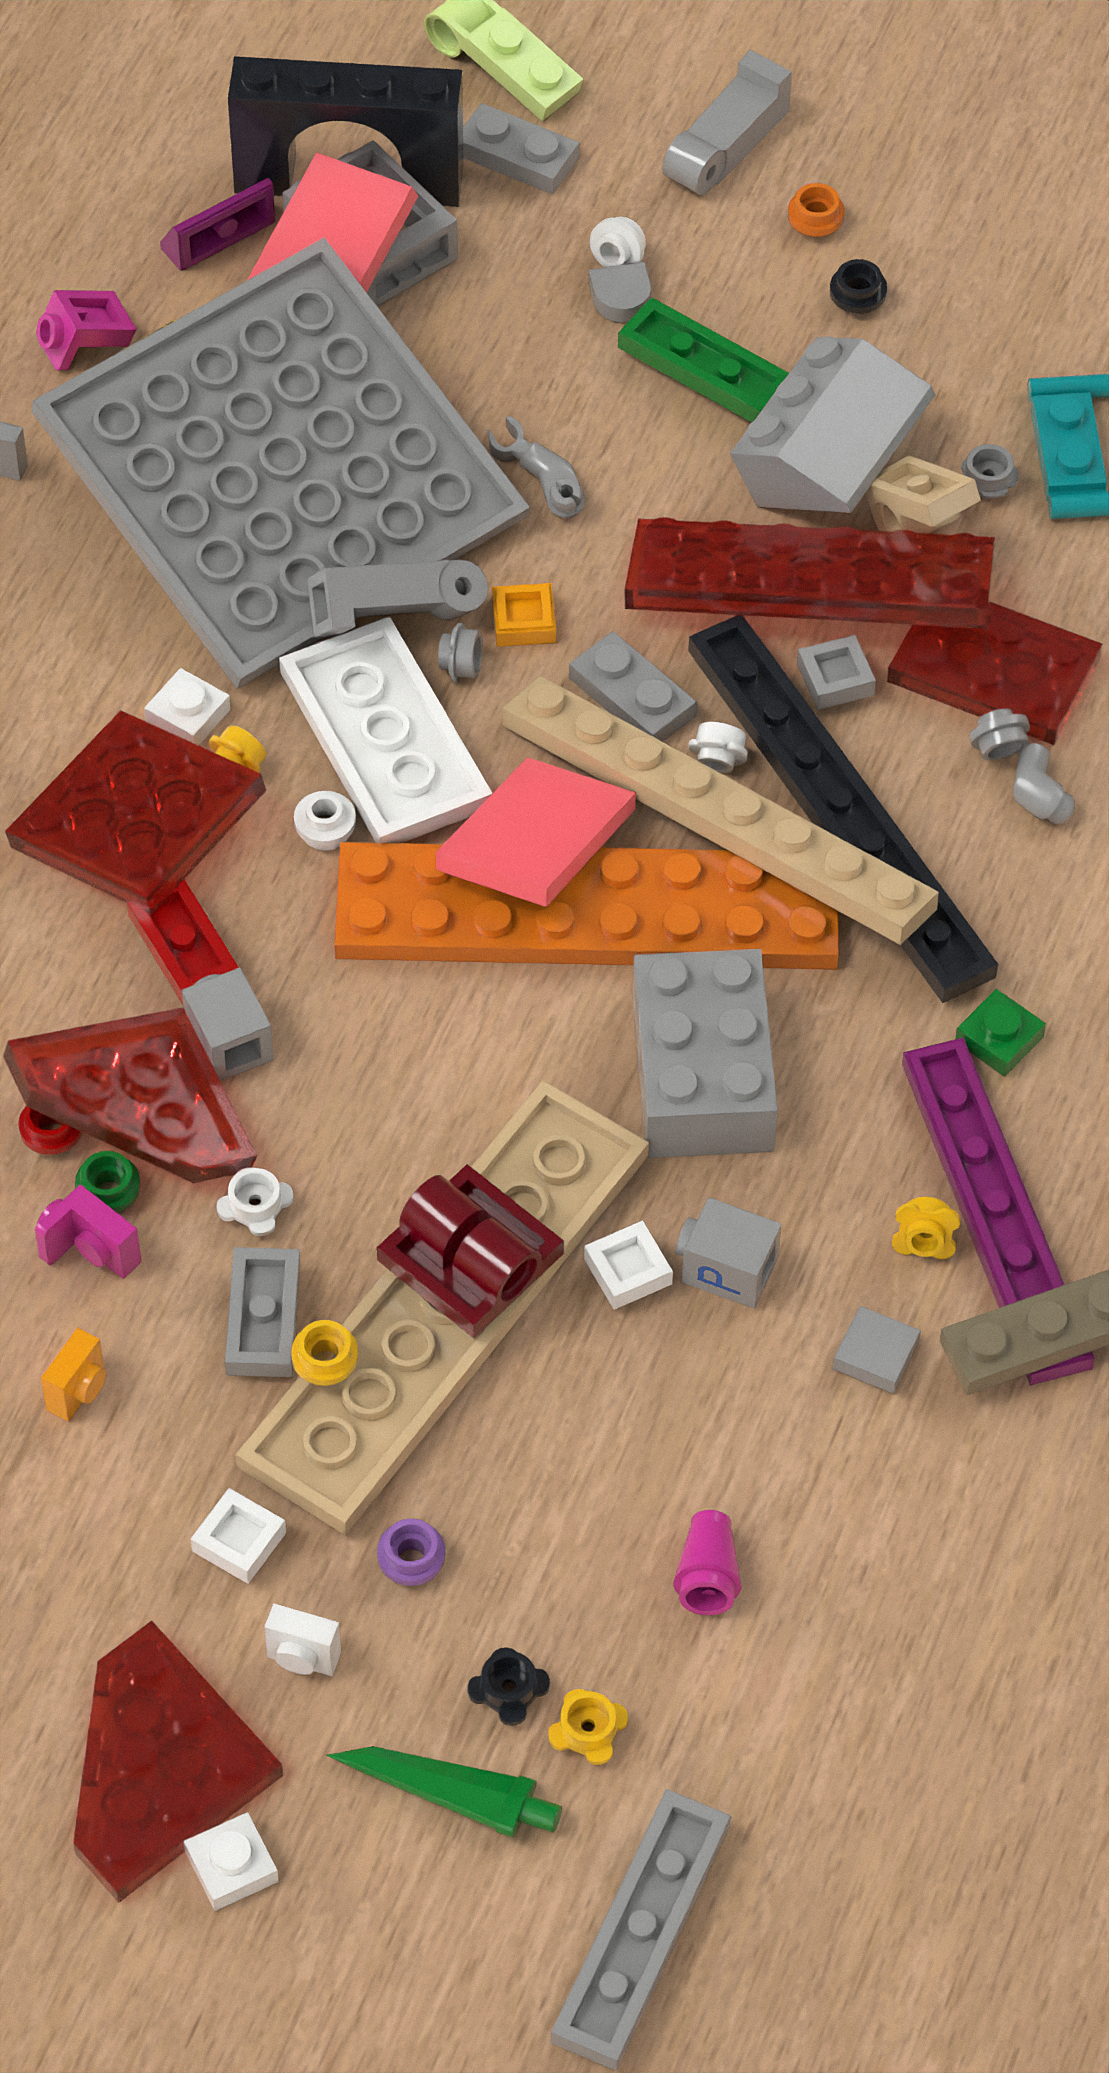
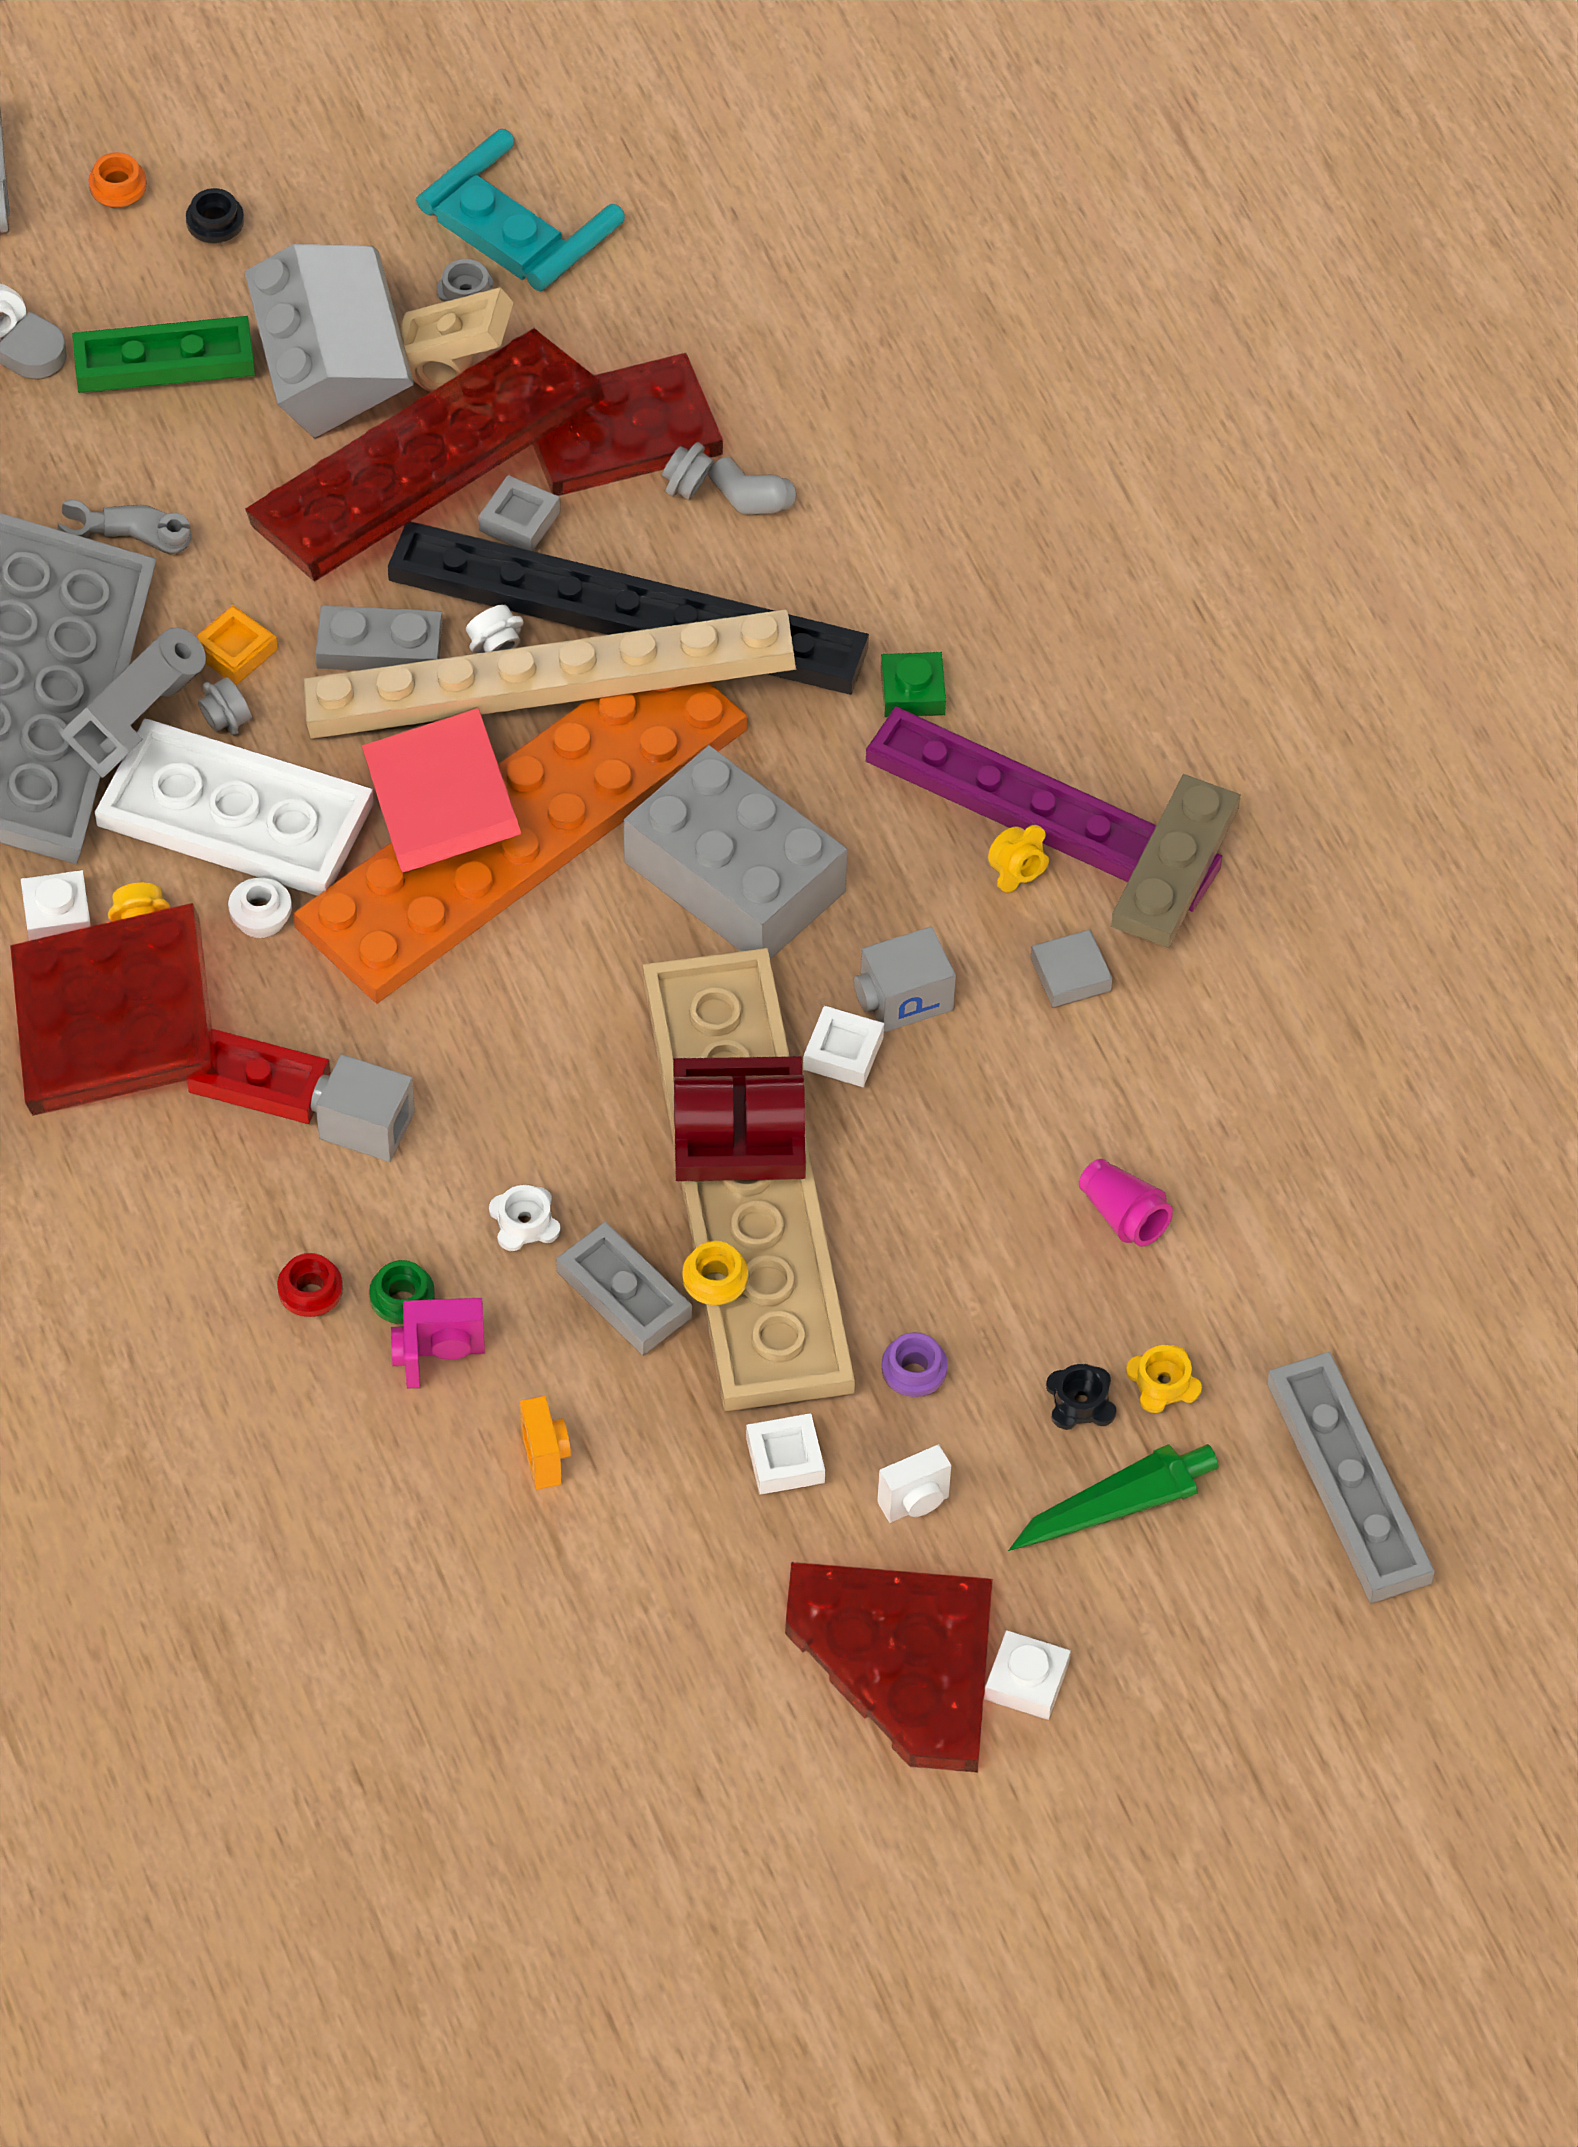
camera: 45 degrees left, 0 degrees up
(137, 1088) = (360, 1204): clear red plate -> none

